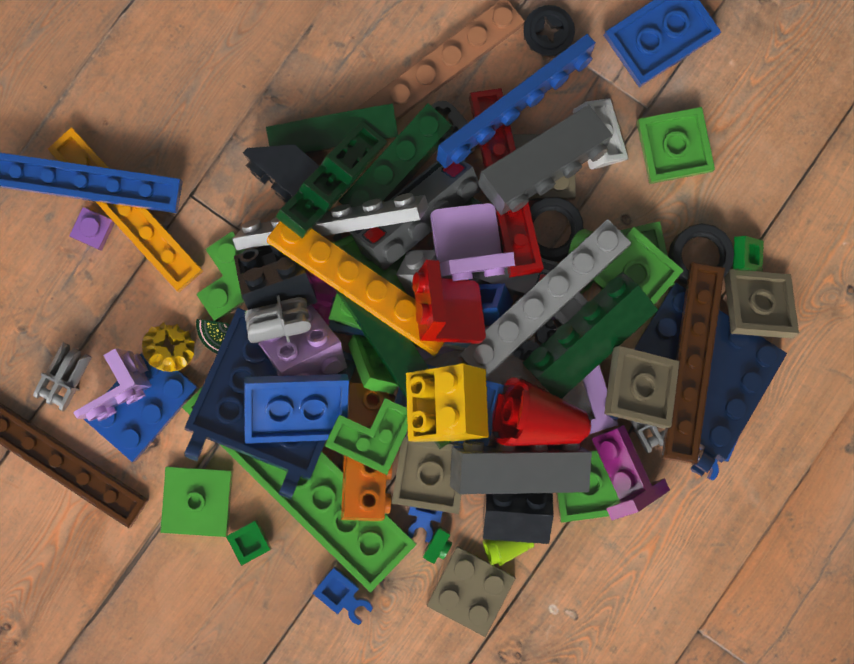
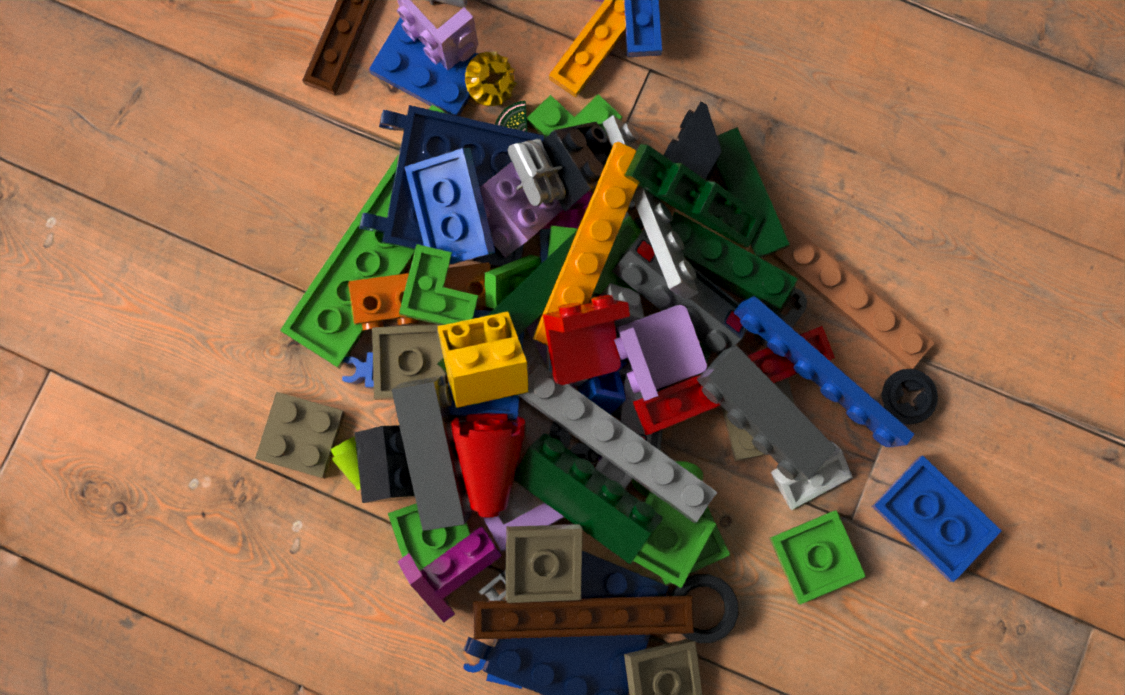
camera: 80 degrees right, 5 degrees down
(196, 501) = (341, 140): bright green plate -> none
(249, 542) = (309, 199): green plate -> none
(338, 593) = (274, 299): blue plate -> none
(438, 545) = (340, 390): green plate -> none
(567, 209) = (722, 434): black tyre -> none
(748, 253) = (716, 660): green plate -> none

